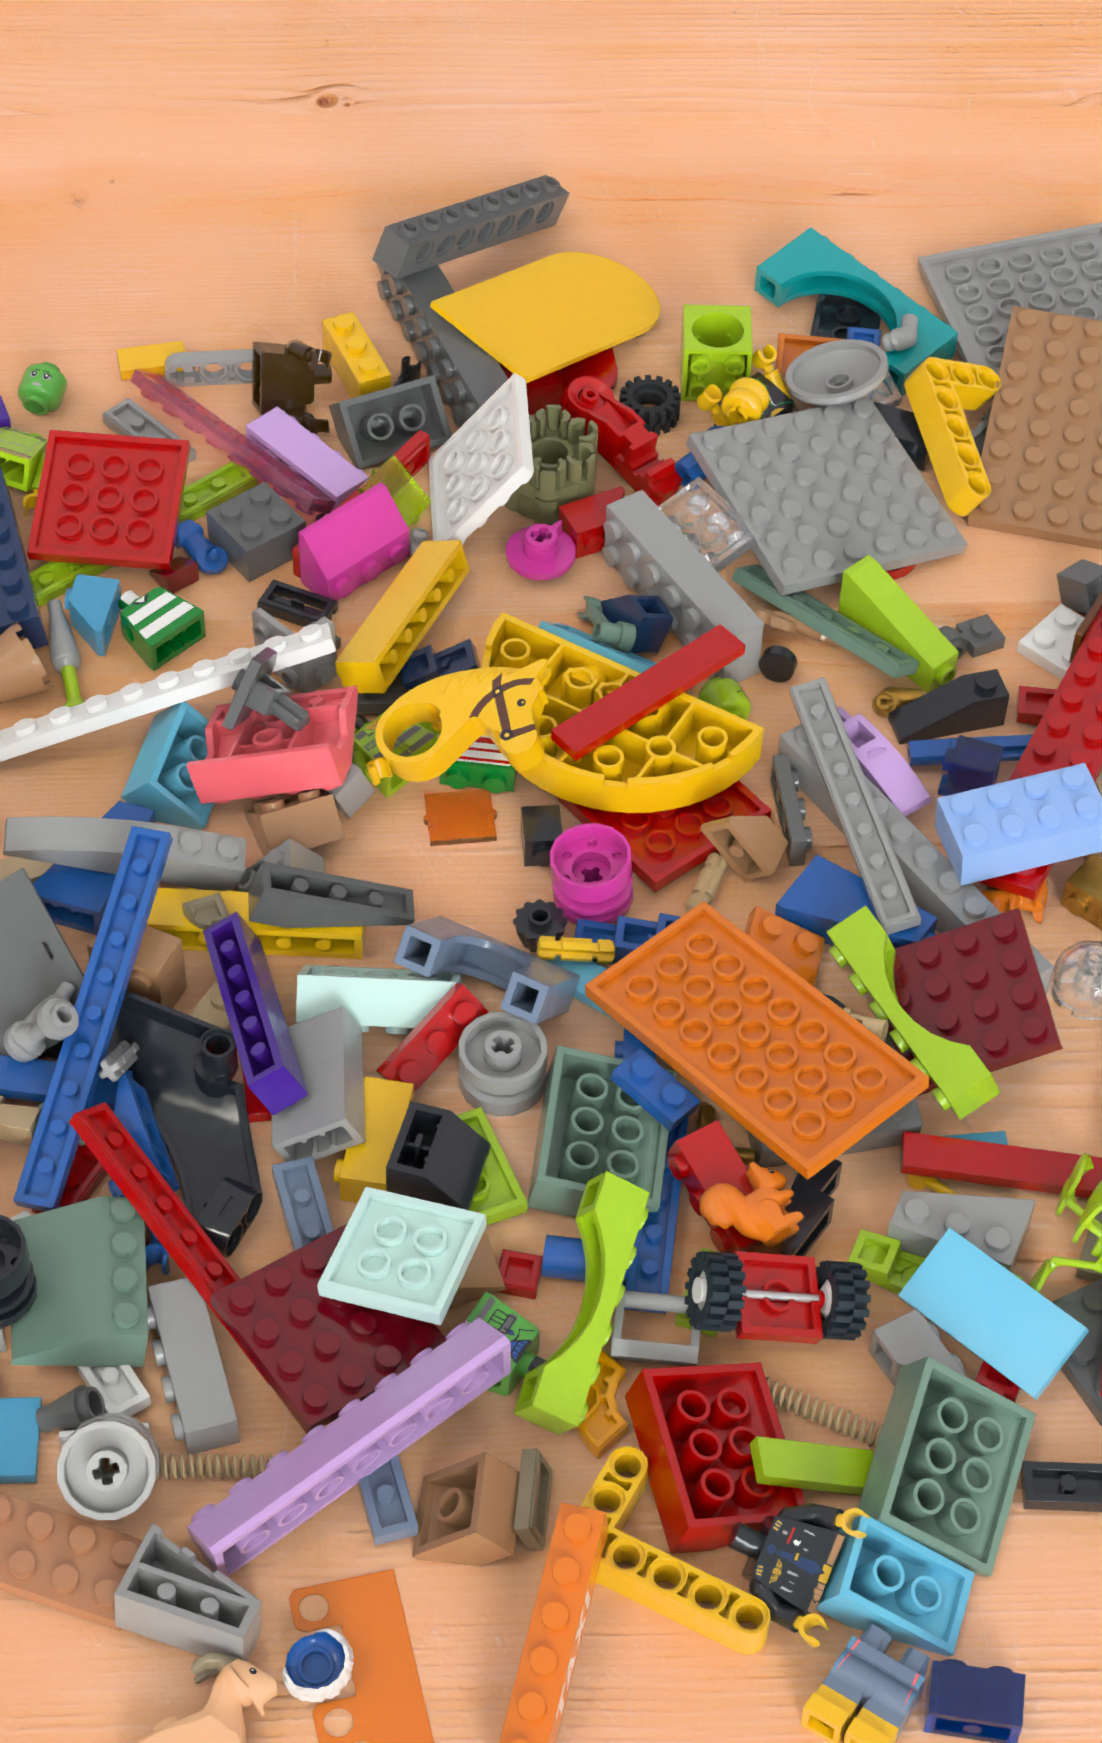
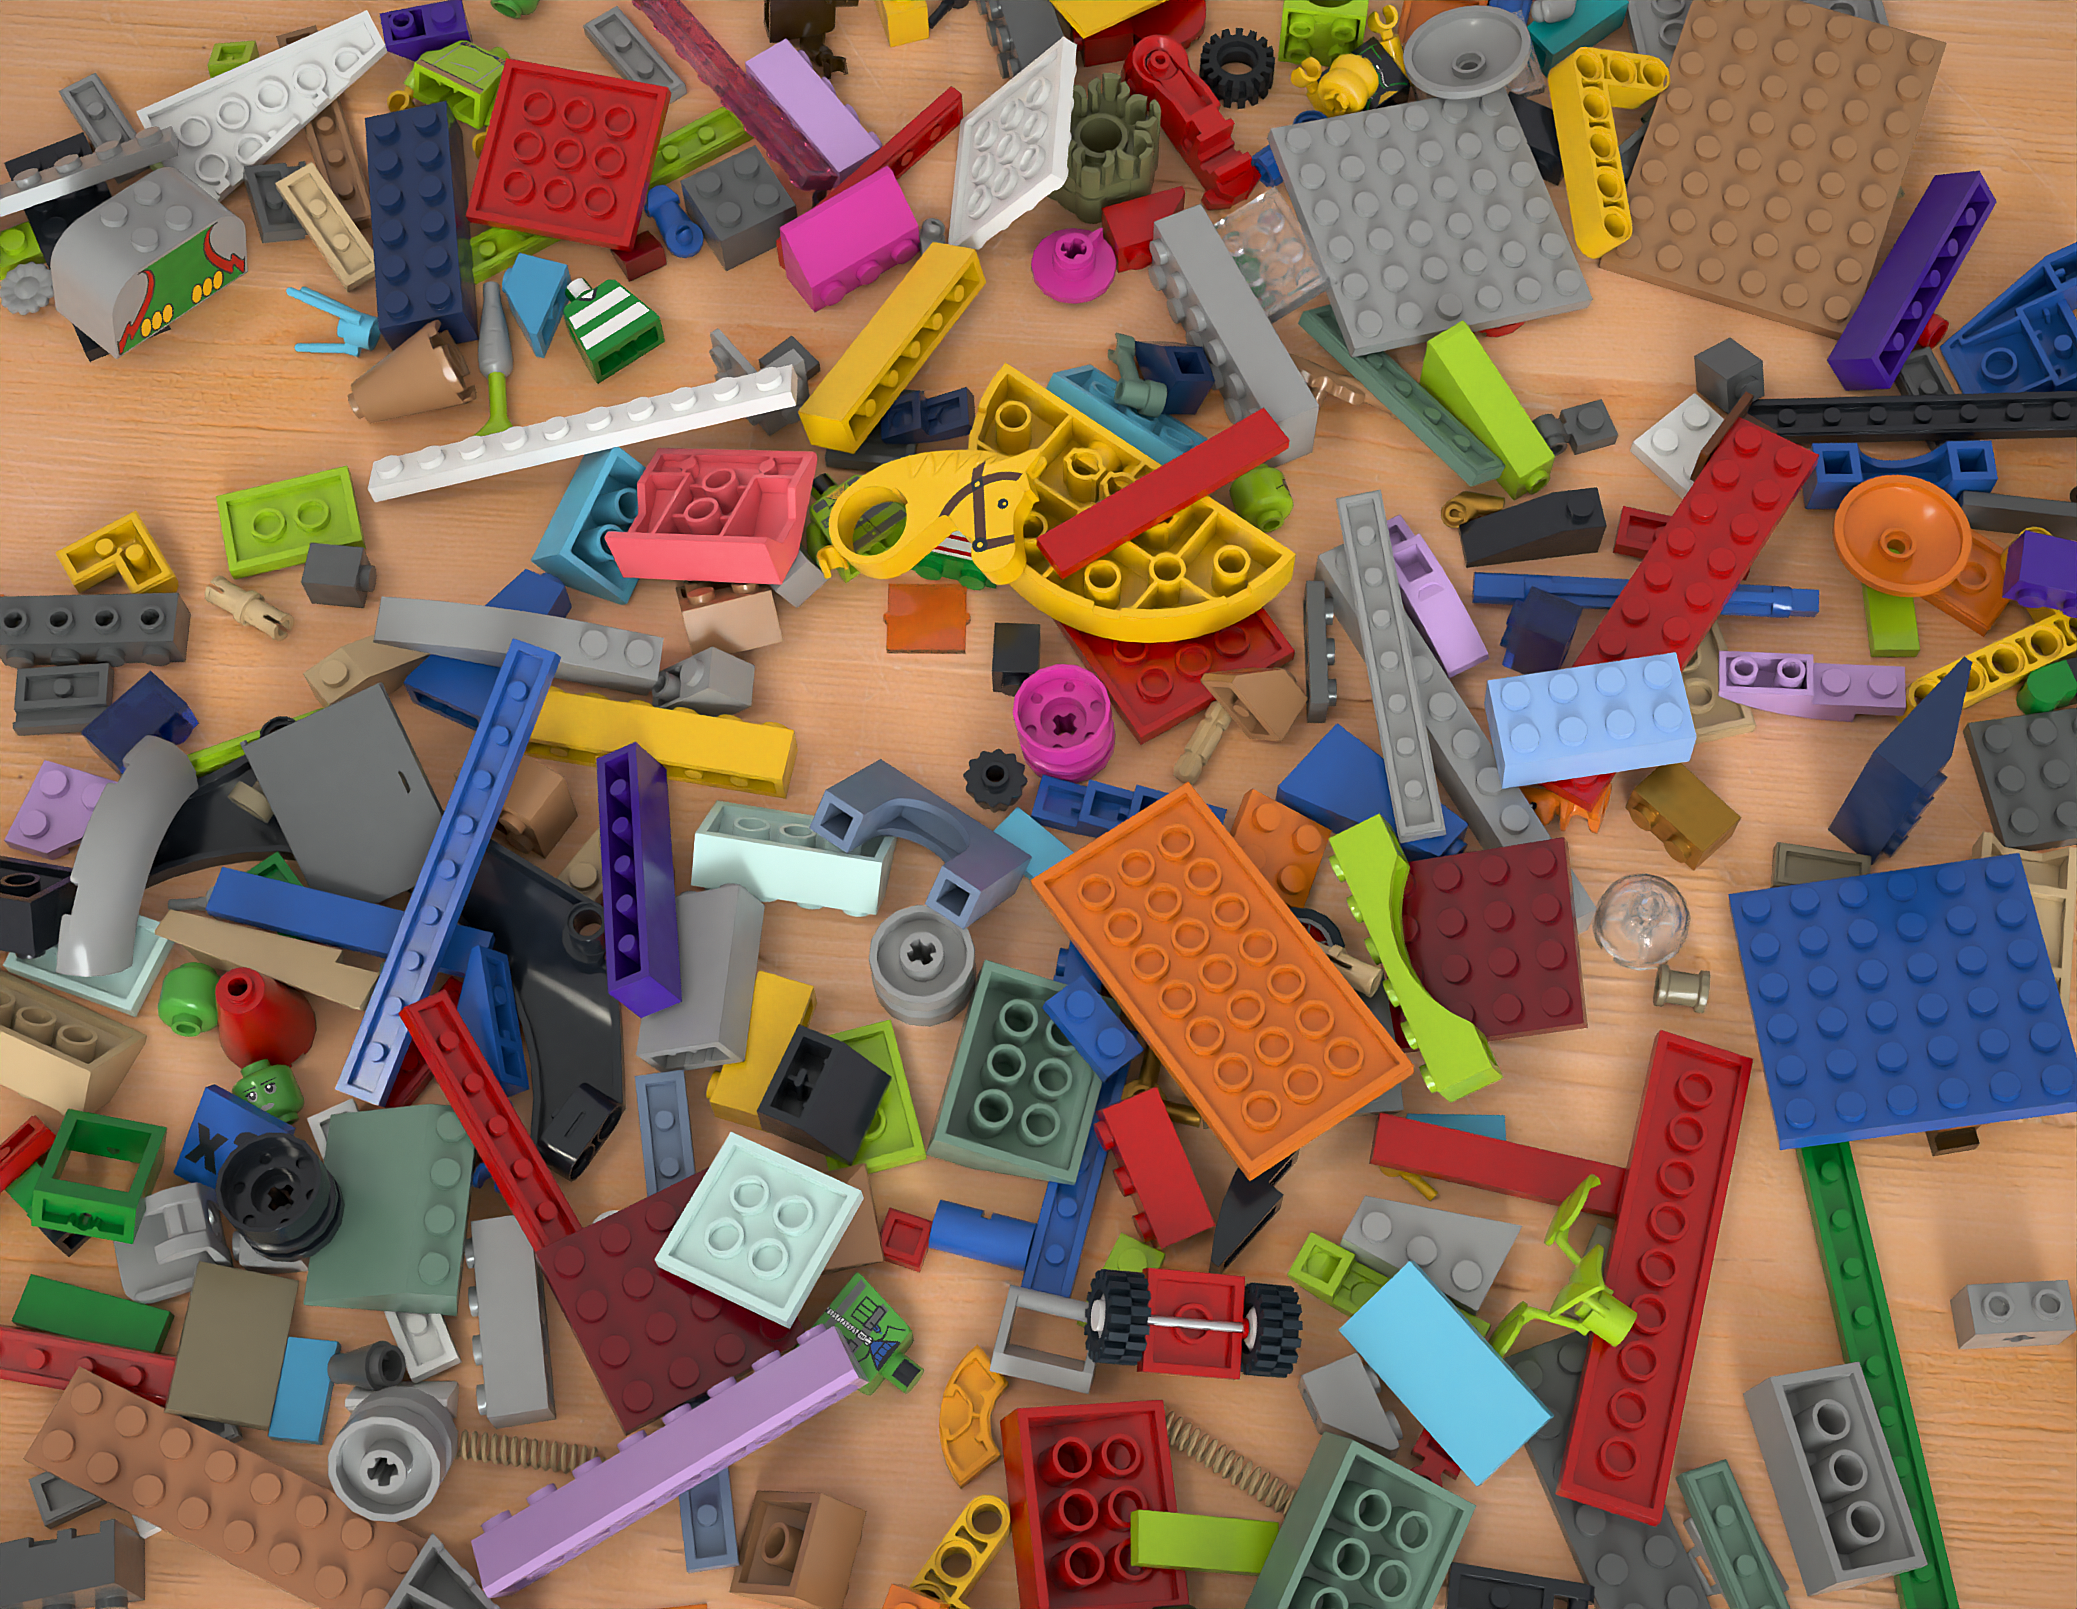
camera: 10 degrees right, 15 degrees up
(50, 1018) = (392, 876): light grey piece -> none
(118, 1060) = (475, 924): light grey axle -> none
(205, 911) = (605, 731): dark tan tile -> none
(264, 694) = (700, 459): dark grey piece -> none
(294, 609) = (772, 316): black tile -> none
(311, 899) = (744, 735): dark grey slope -> none
(384, 420) = (918, 62): dark grey slope -> none
(402, 487) = (915, 167): clear neon green piece -> none
(432, 1038) = (843, 928): red plate -> none
(533, 1499) = (874, 1542): dark tan tile -> none
(575, 949) = (1031, 821): yellow axle -> none
(608, 1225) = (923, 1404): lime arch -> none
(757, 1214) = (1185, 1215): orange animal -> none
(778, 663) = (1335, 446): black tile -> none

